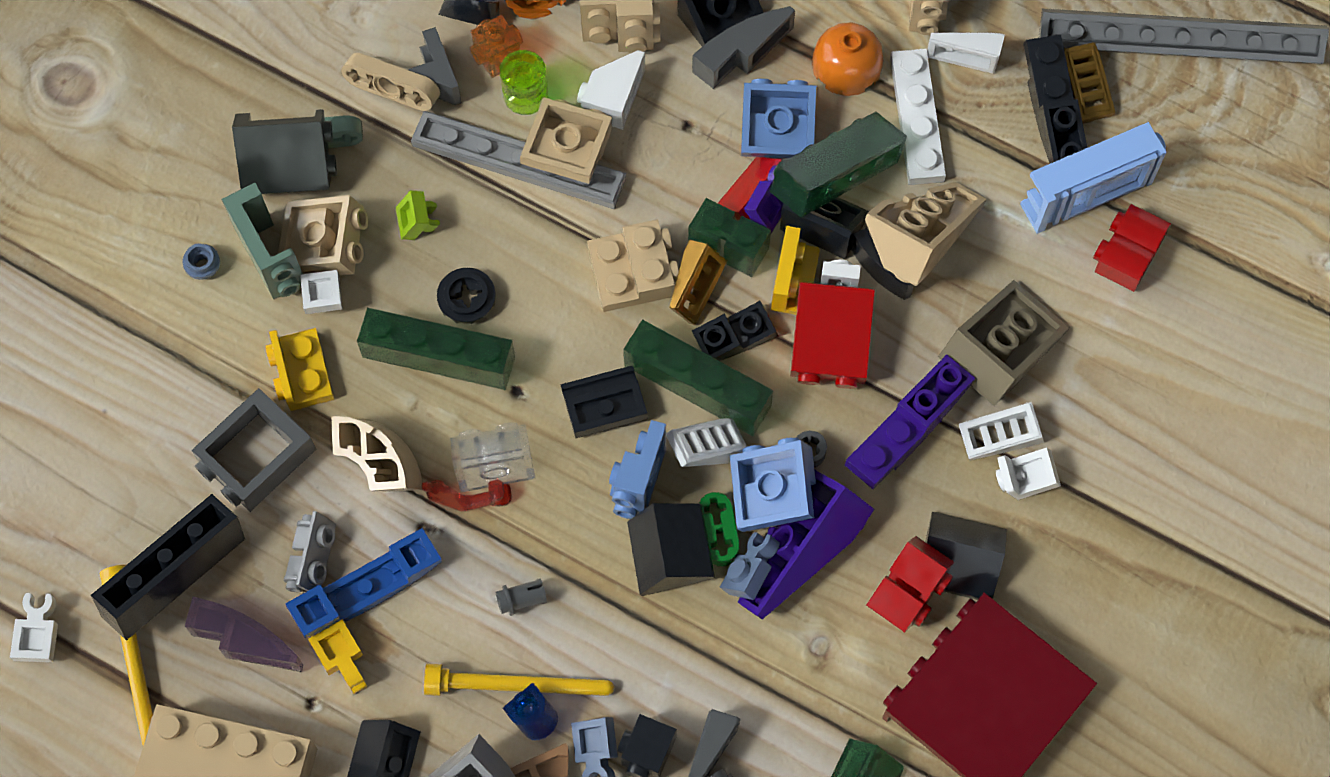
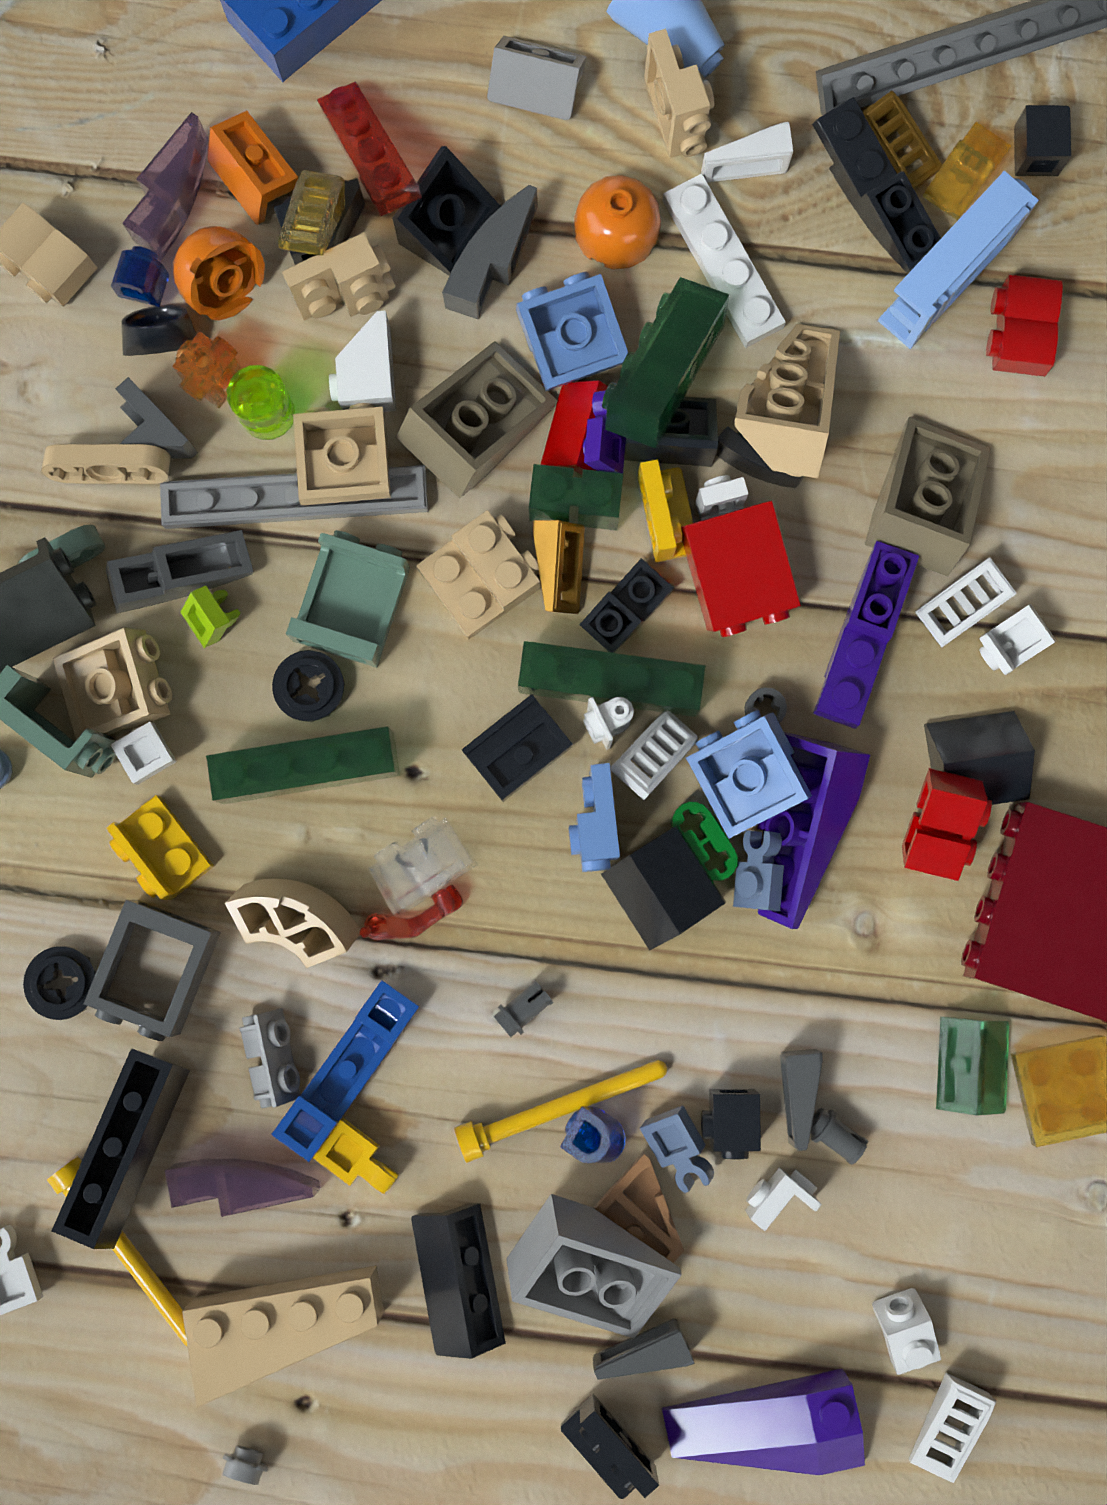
camera: 20 degrees left, 15 degrees up
(171, 422) = (45, 969): none -> black gear
(398, 173) = (177, 570): none -> dark grey slope
(527, 246) = (350, 599): none -> sand green panel
(677, 154) = (474, 418): none -> dark tan slope
(682, 402) = (607, 719): none -> white hinge
(1133, 113) = (966, 170): none -> clear yellow slope
(1198, 121) = (1042, 140): none -> black panel

